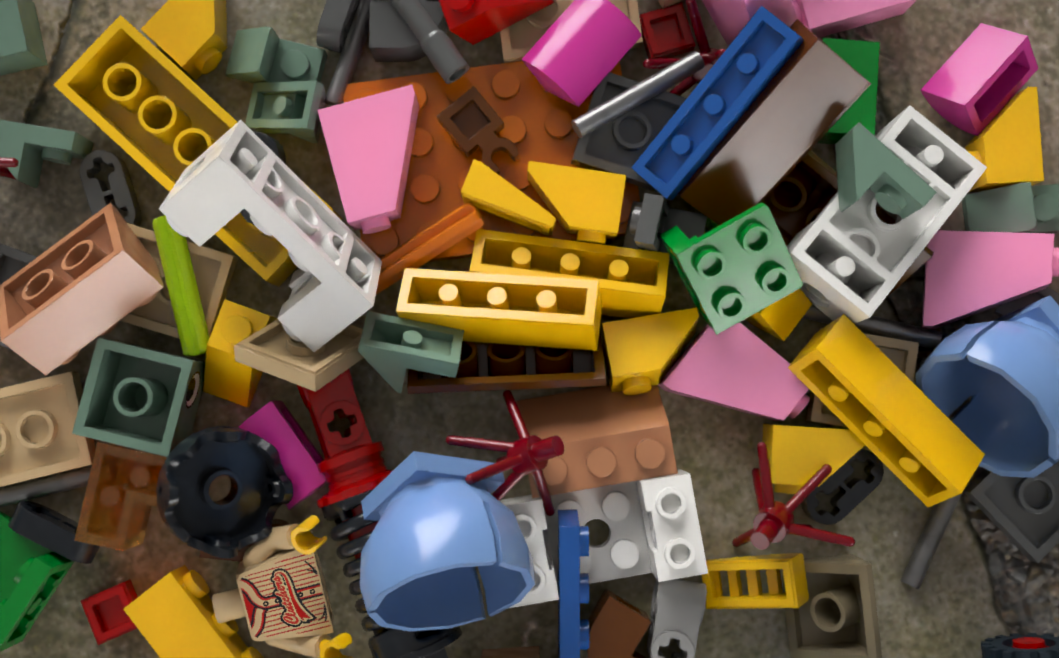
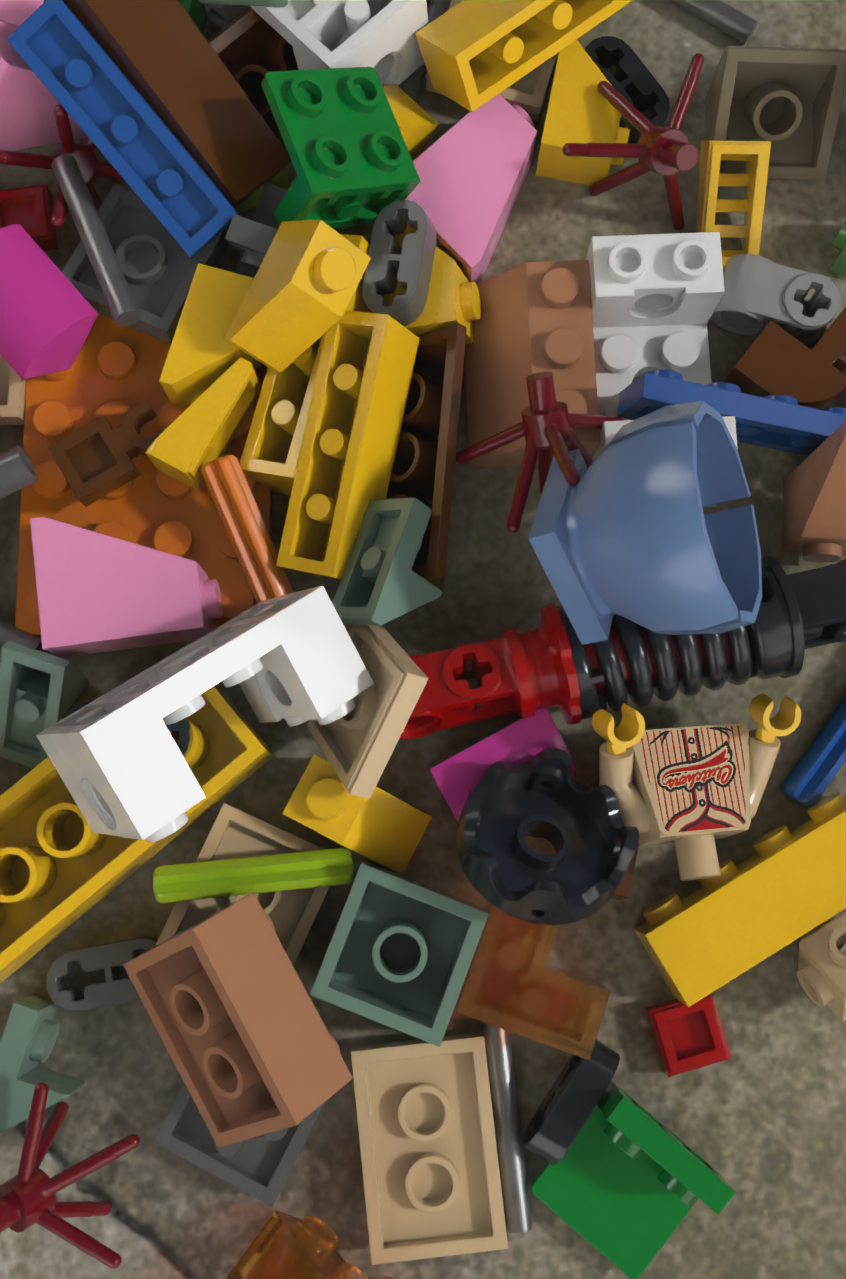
camera: 80 degrees left, 5 degrees down
(604, 253) = (297, 292): none -> yellow slope
(652, 327) = (408, 264): none -> dark grey beam

